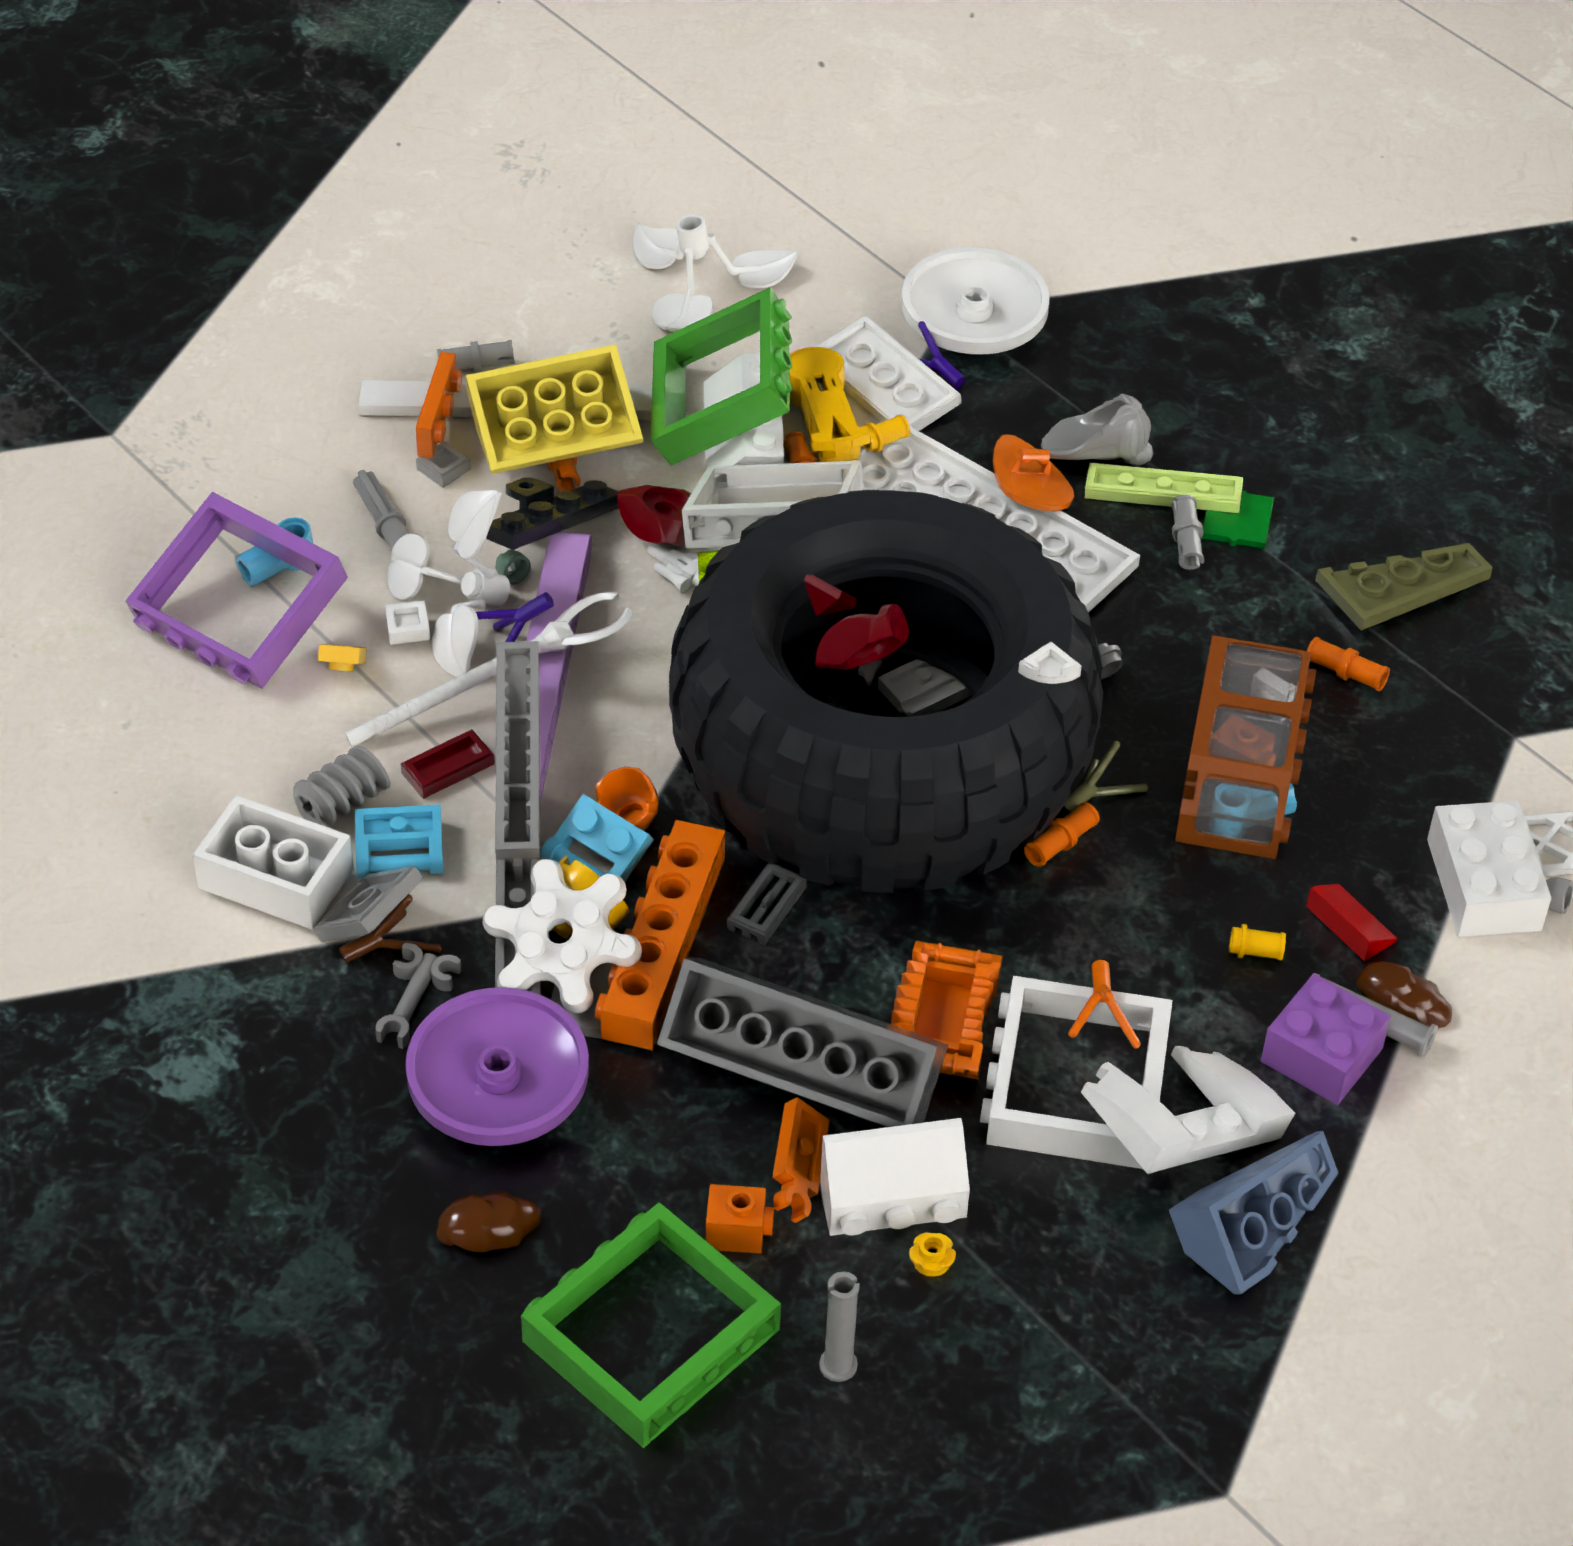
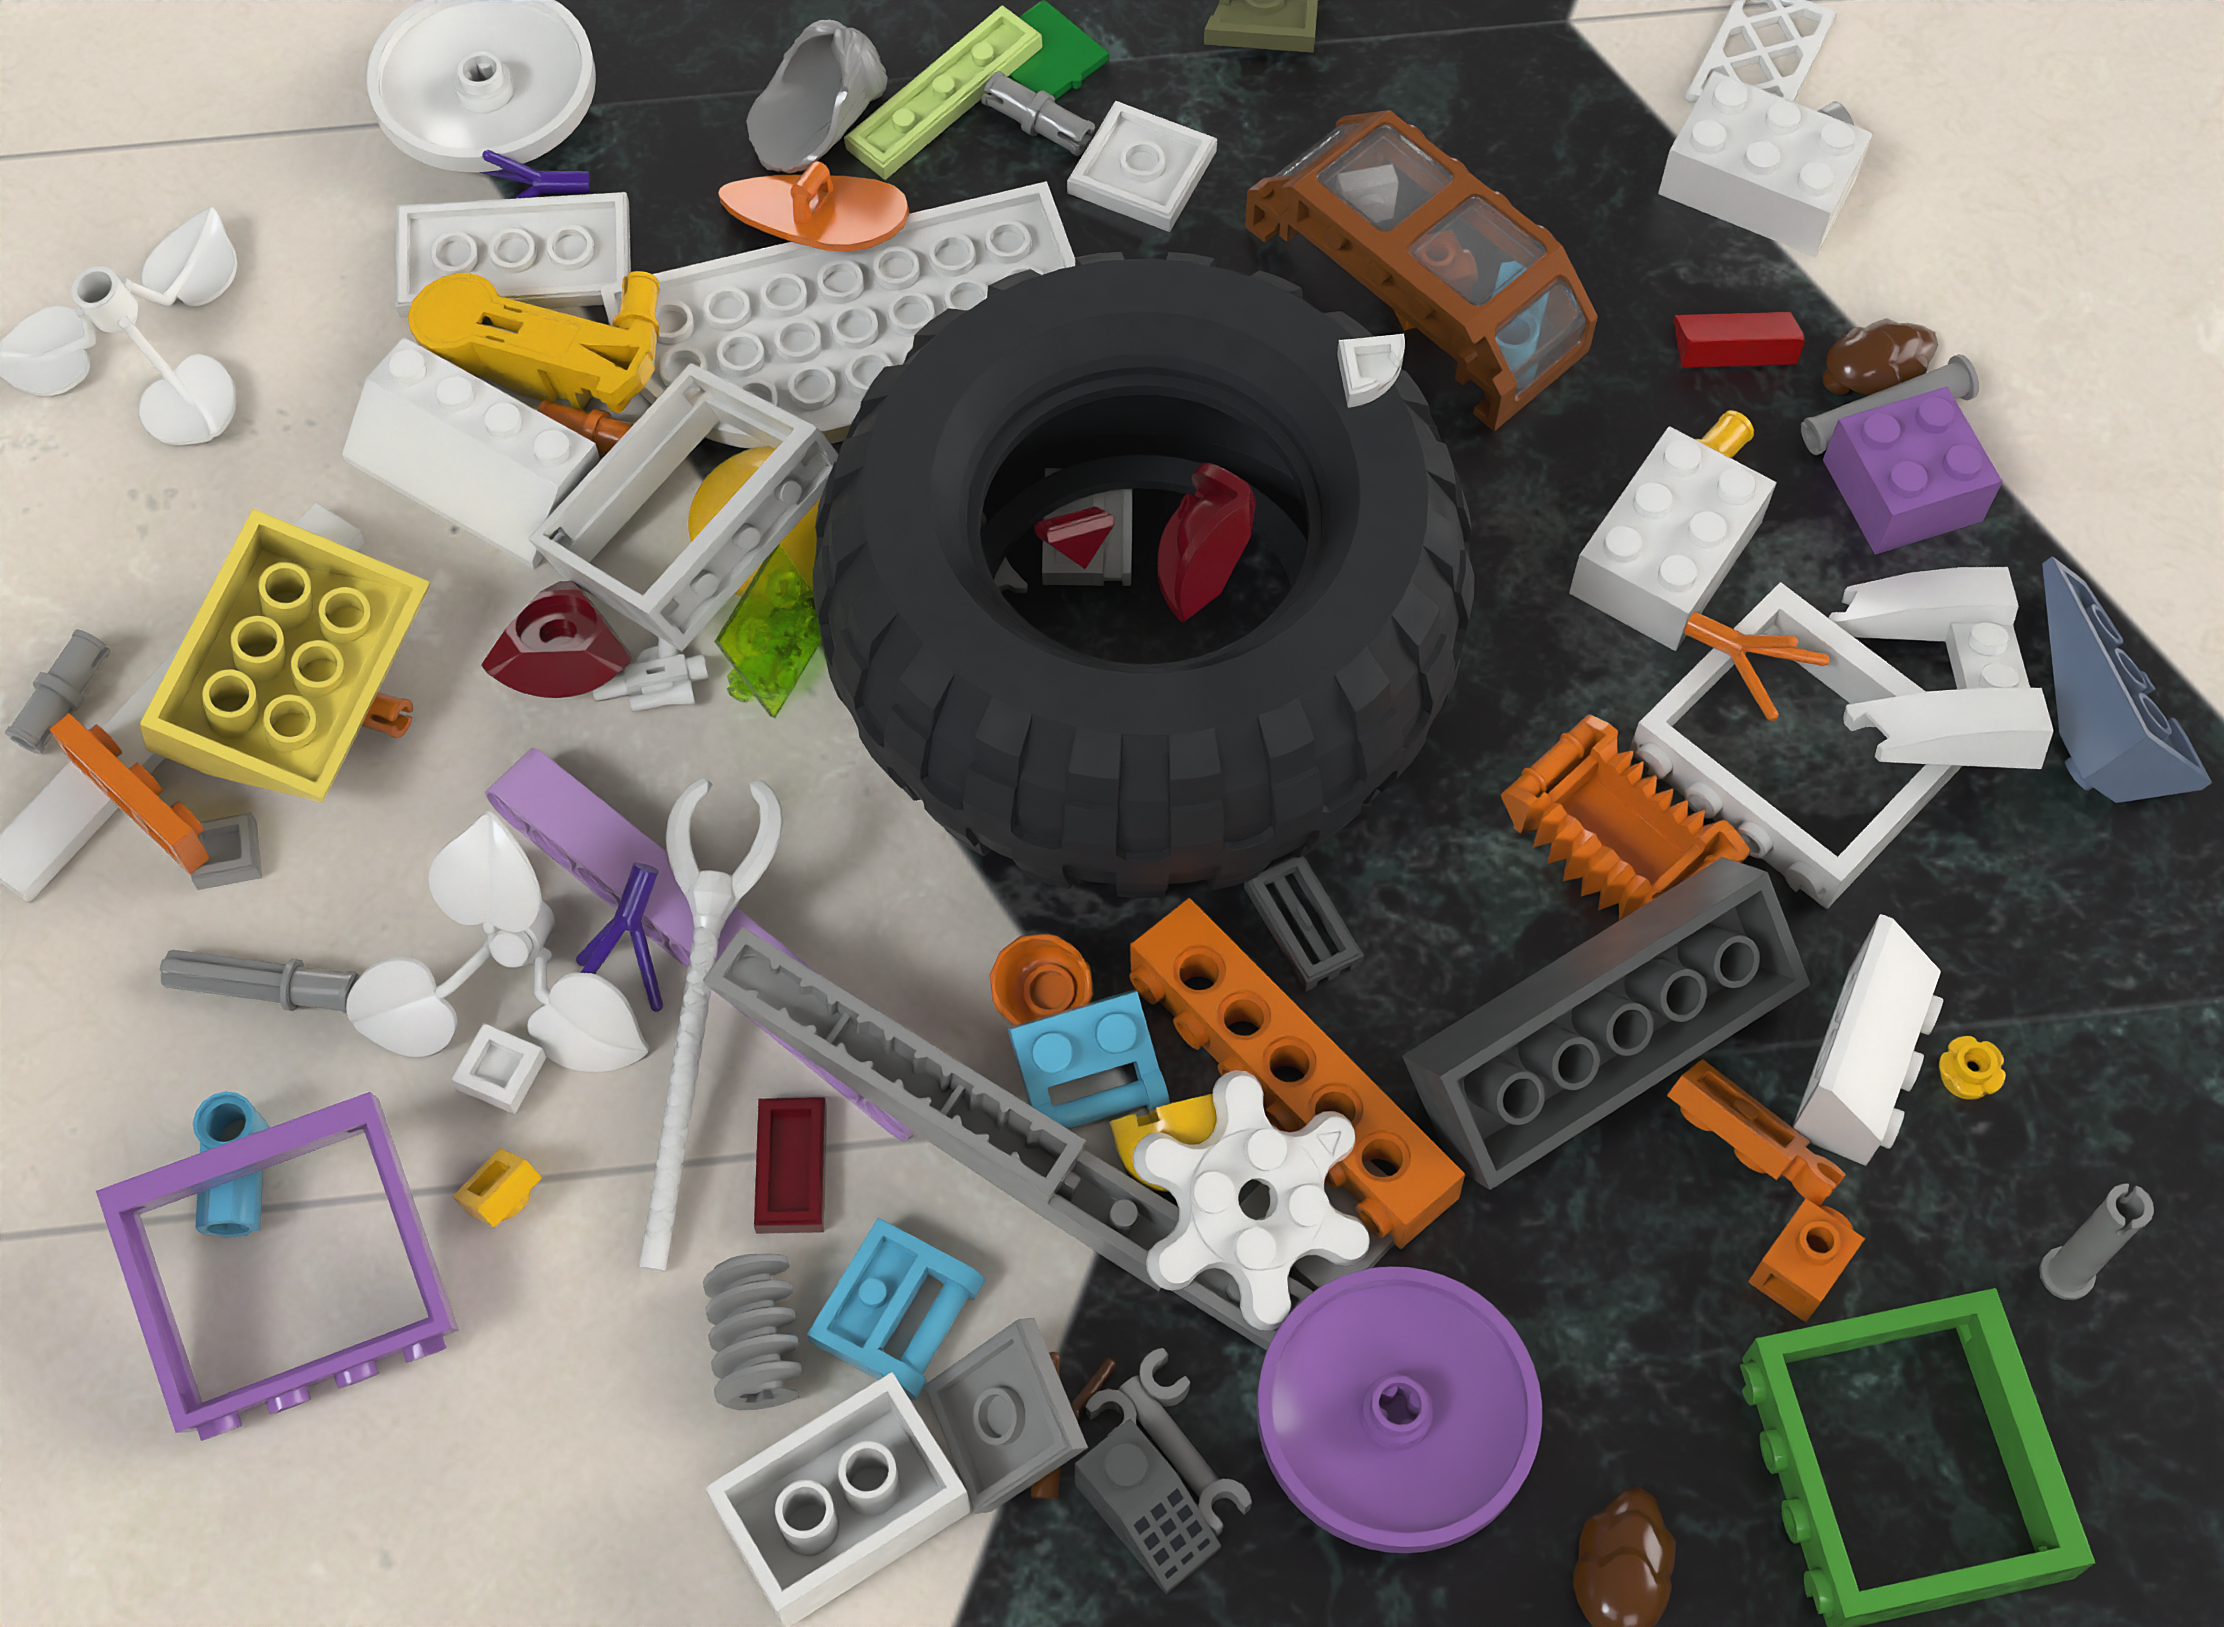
camera: 55 degrees left, 15 degrees up
(366, 990) = (1146, 1505): none -> dark grey slope
(544, 515) = (458, 771): black plate -> none
(683, 436) = (485, 468): bright green window -> none
(1167, 943) = (1671, 537): none -> white brick
(1201, 596) = (1142, 166): none -> white tile
(1348, 664) = (1362, 95): orange pin -> none

